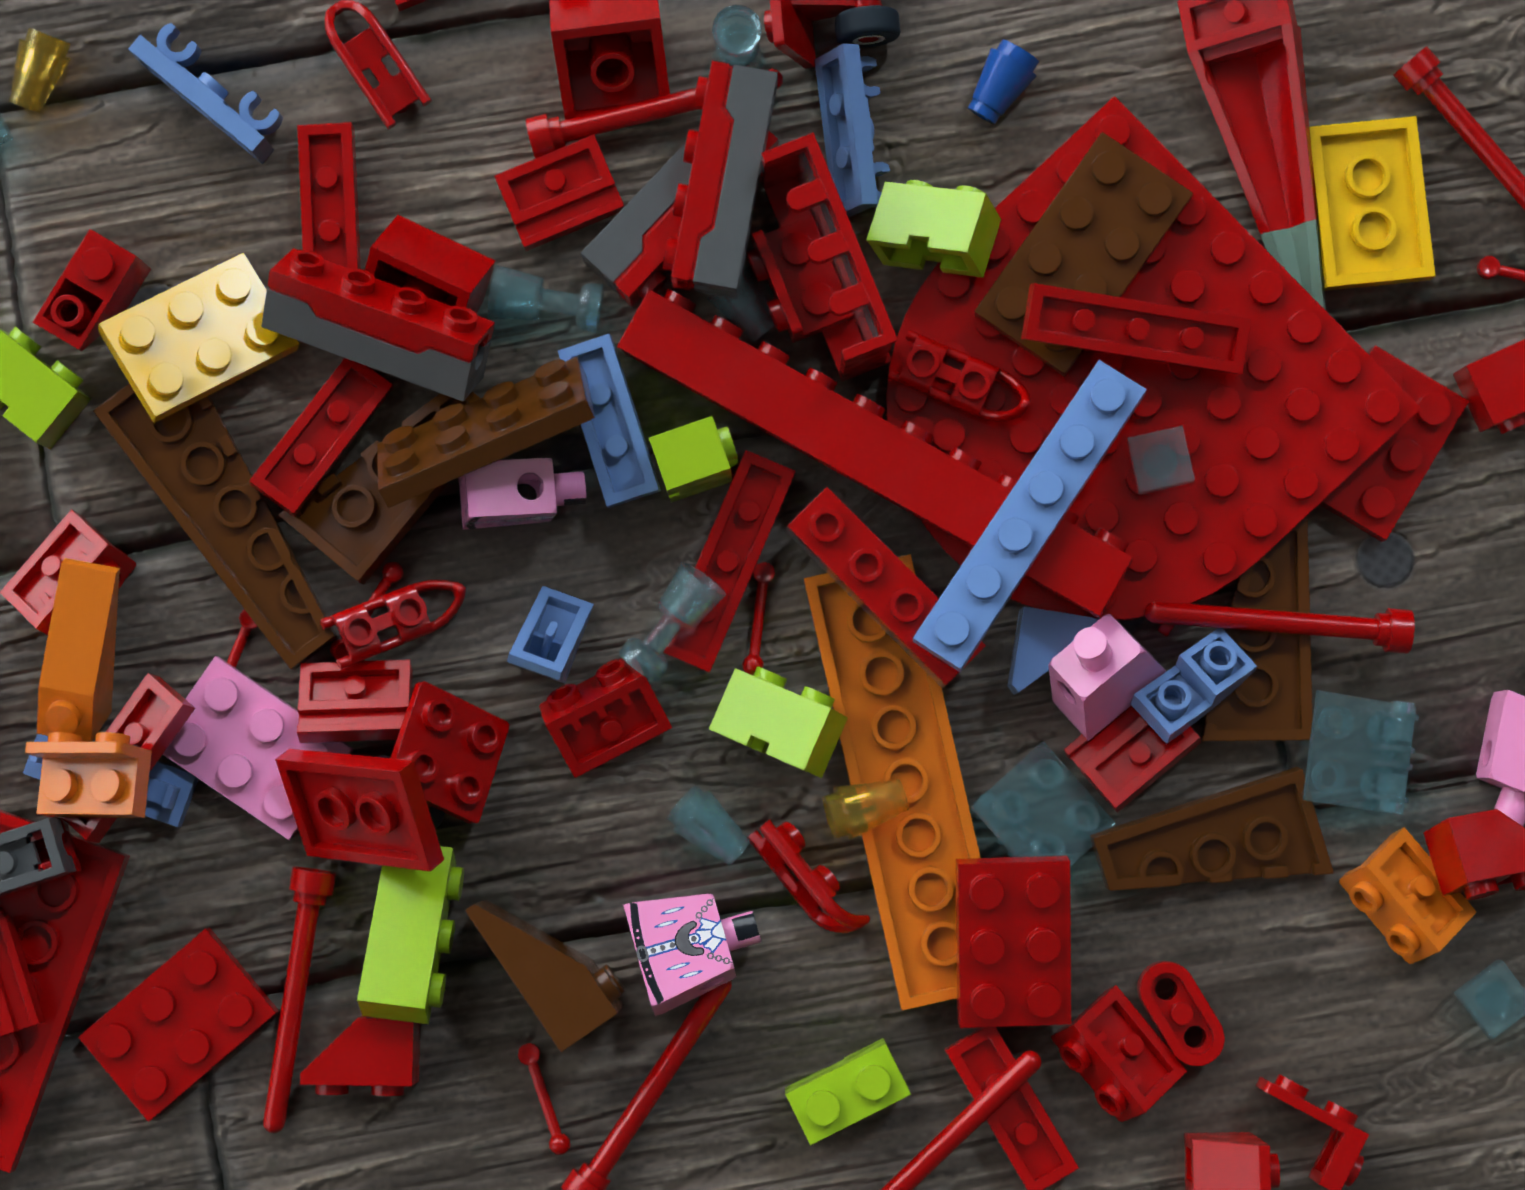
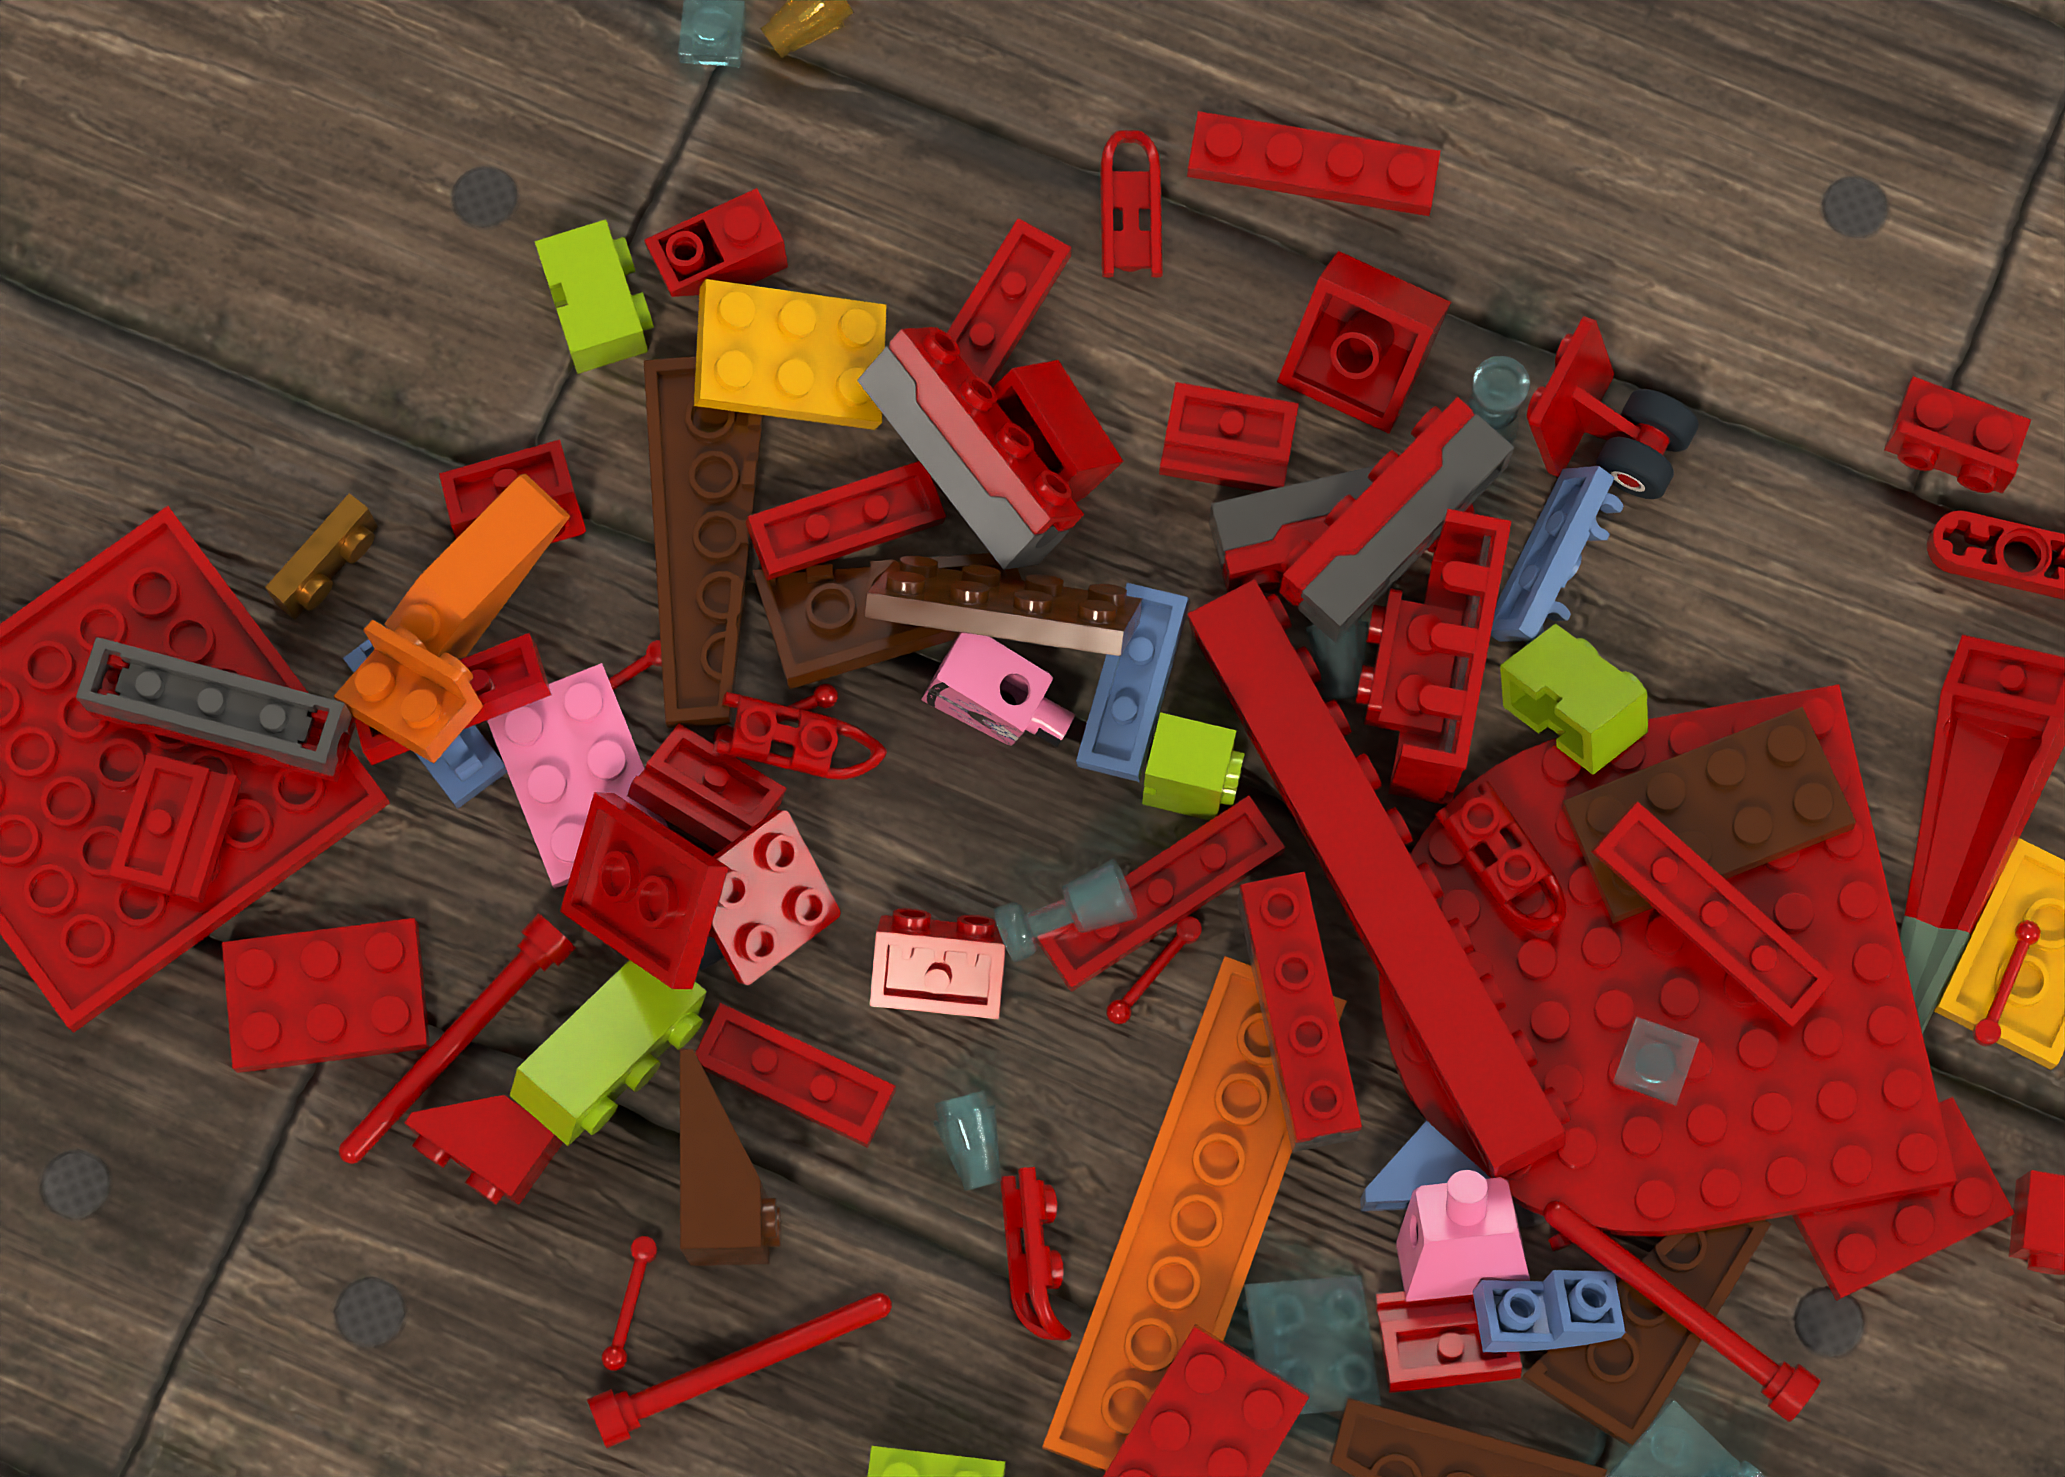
camera: 30 degrees right, 10 degrees down
(206, 93) = (951, 137): medium blue plate -> none
(523, 296) = (1129, 514): clear light blue piece -> none
(551, 635) = (937, 854): medium blue slope -> none
(552, 134) = (1256, 377): red piece -> none
(553, 863) = (794, 1075): none -> red plate
(686, 946) = (869, 1240): bright pink torso -> none
(794, 726) = (1104, 1072): lime brick -> none
(863, 806) = (1136, 1213): clear yellow cone -> none
(1002, 80) = (1736, 603): blue cone -> none
(1029, 516) = (1487, 1025): medium blue plate -> none
(1373, 282) = (1988, 1030): none -> red hinge

